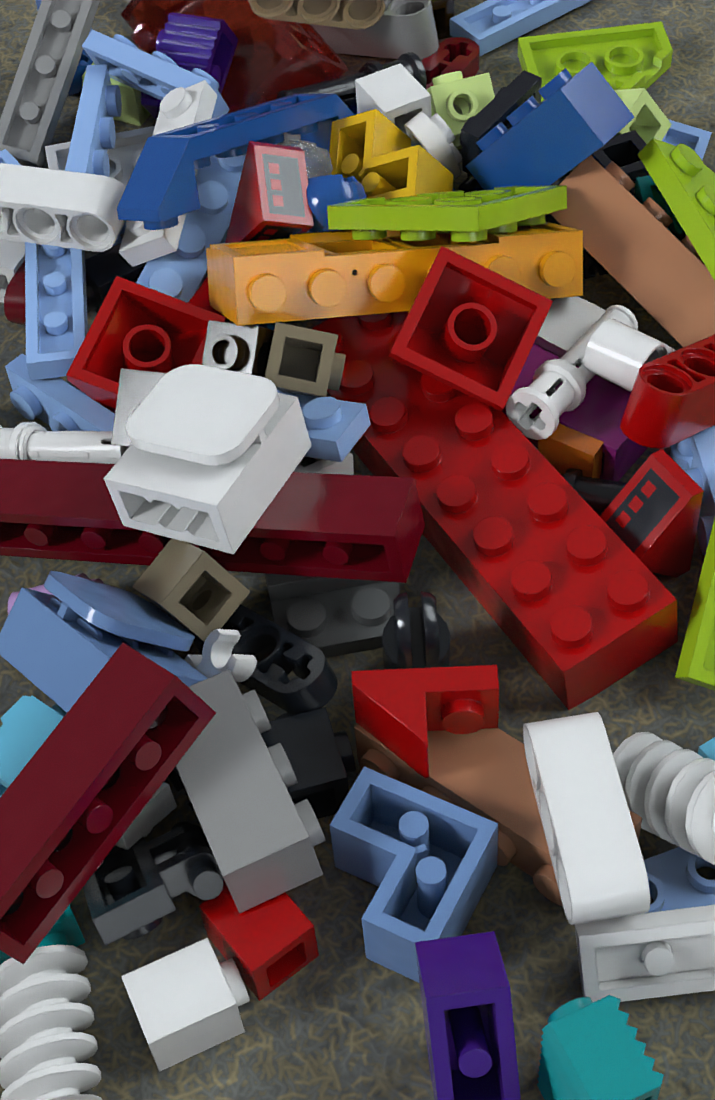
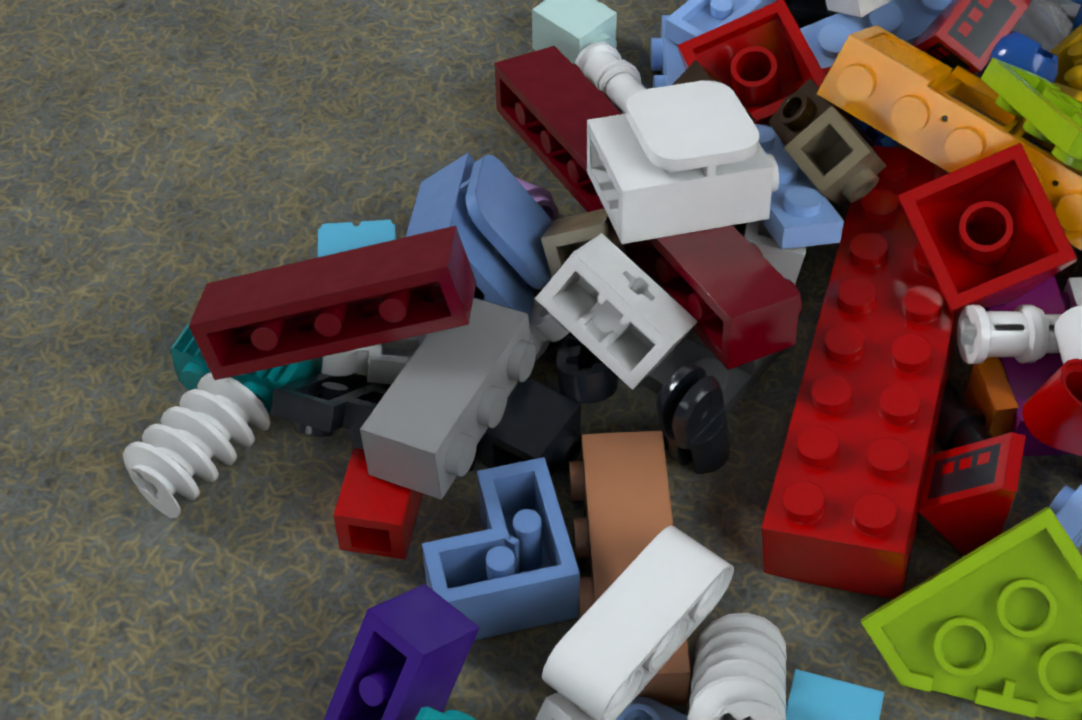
camera: 45 degrees right, 0 degrees up
(187, 1002) = (286, 501): white brick -> none
(287, 608) = (615, 310): none -> white brick
(408, 702) = (628, 450): red slope -> none

